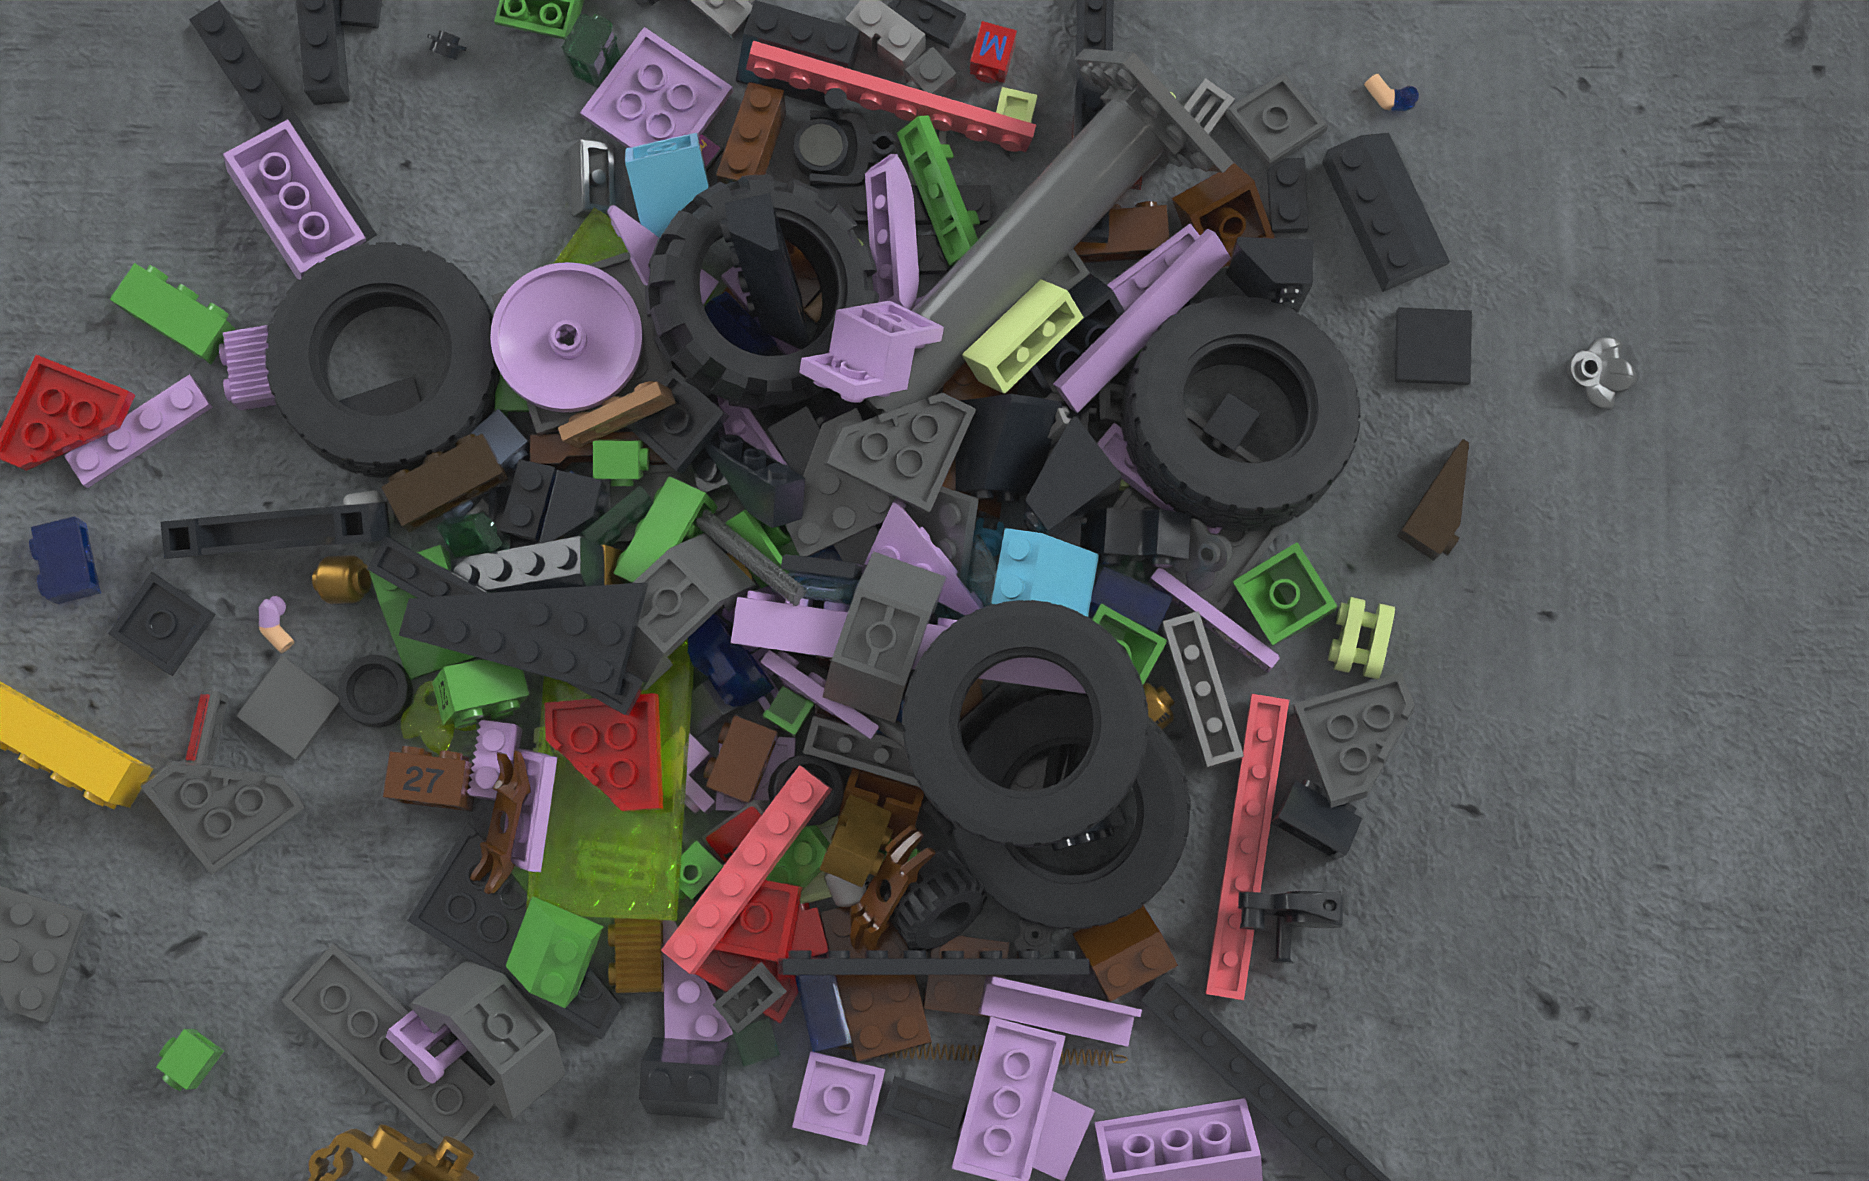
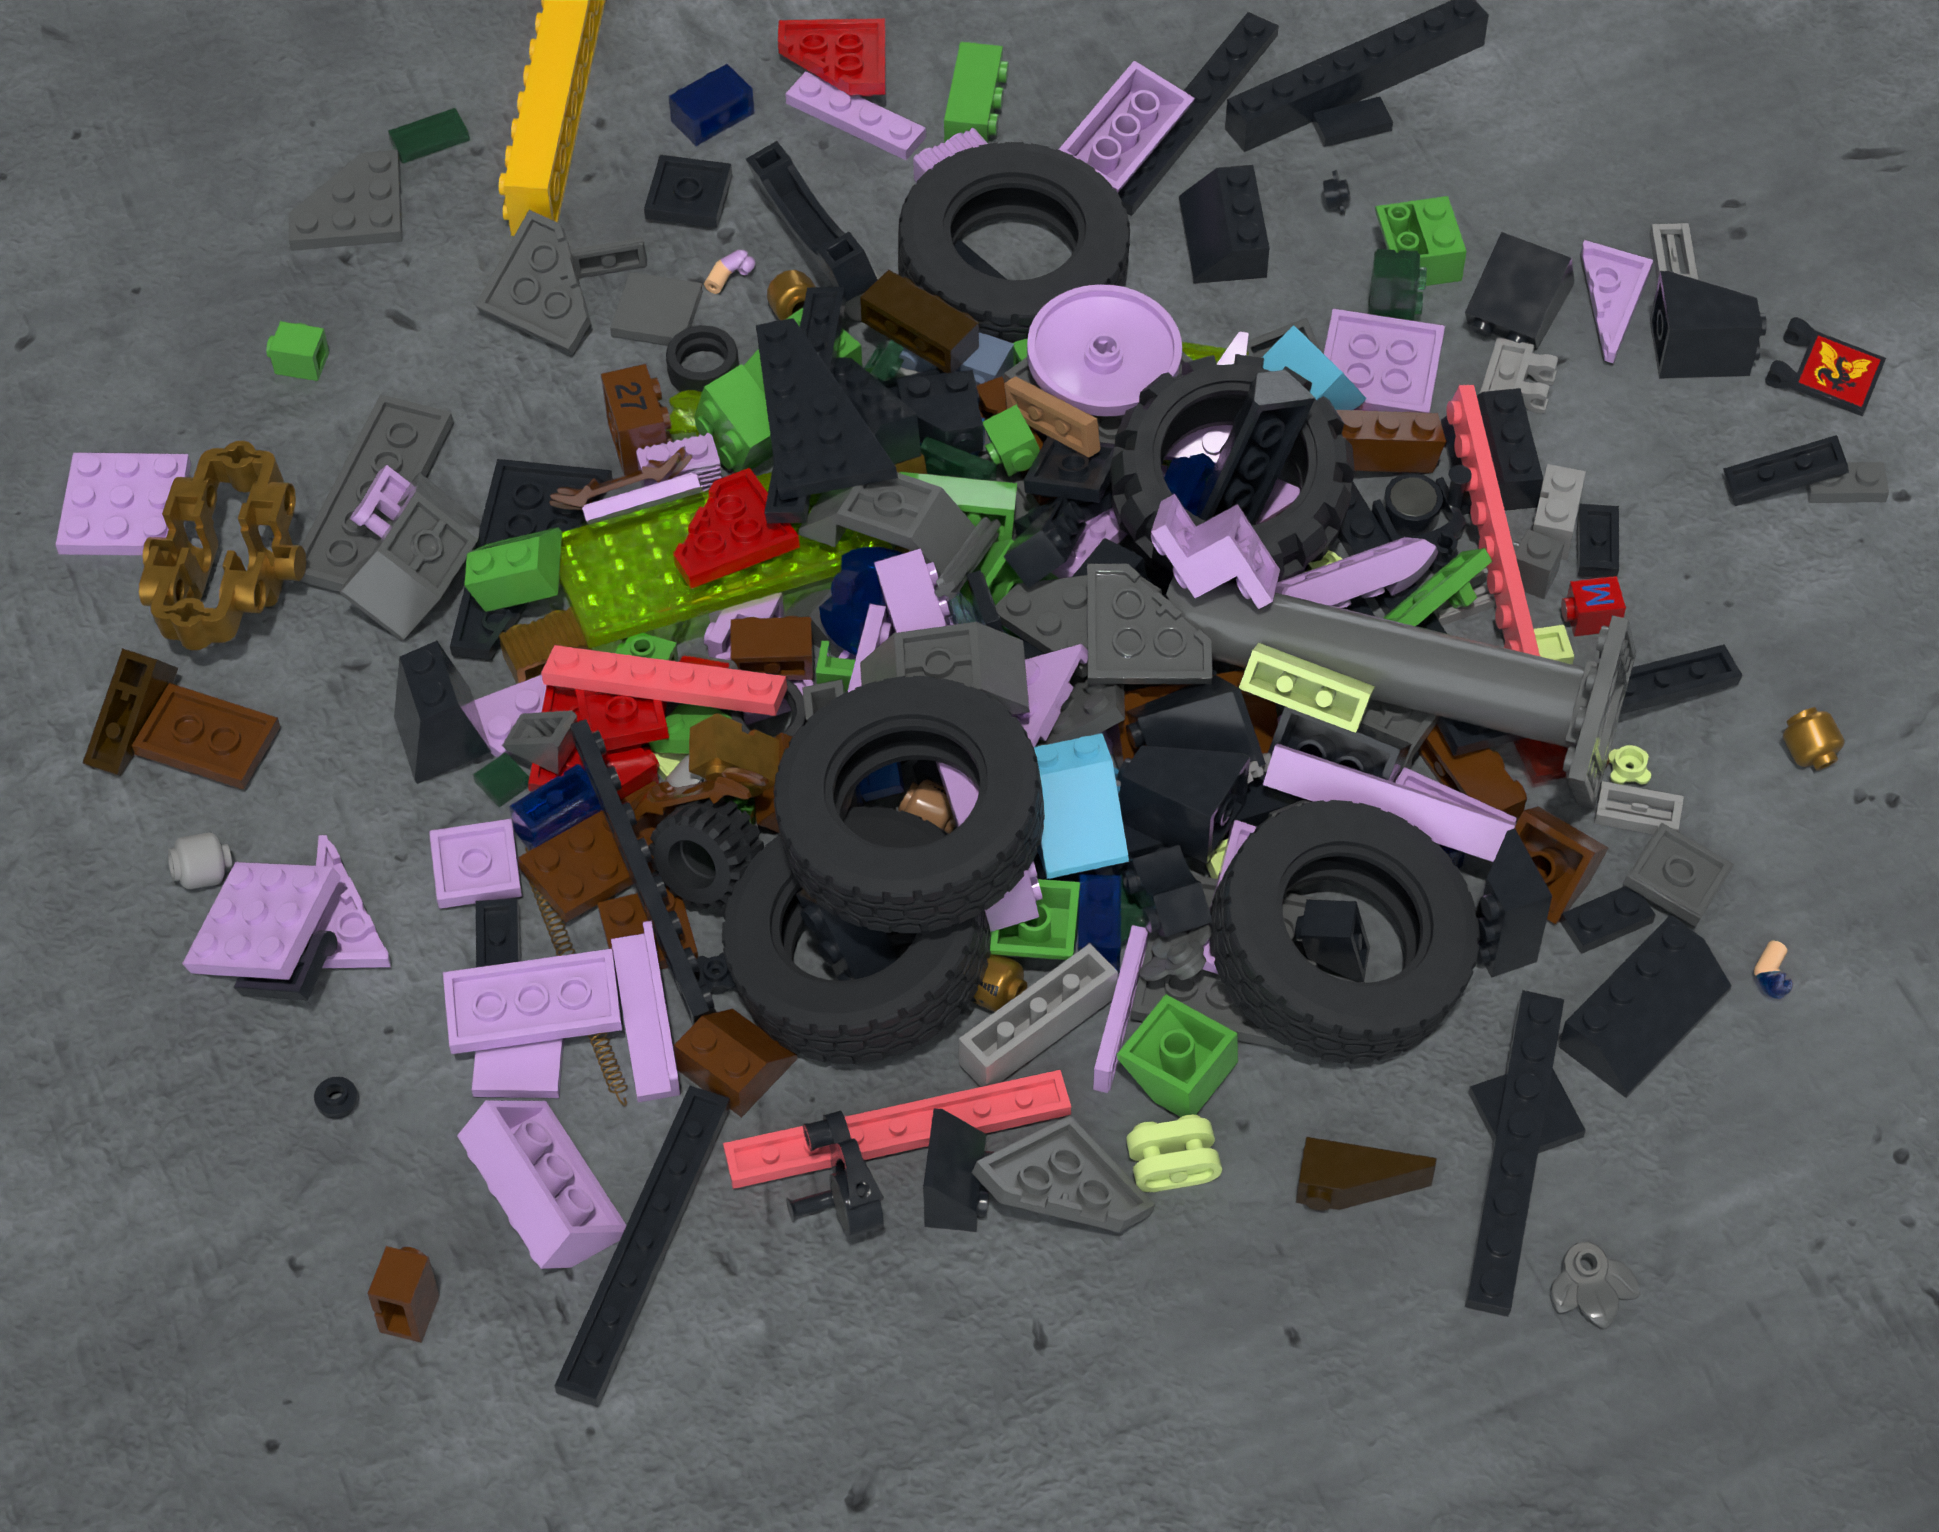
camera: 65 degrees right, 25 degrees down
(439, 160) = (1225, 226): none -> black slope
(1469, 373) = (1514, 1154): none -> black plate

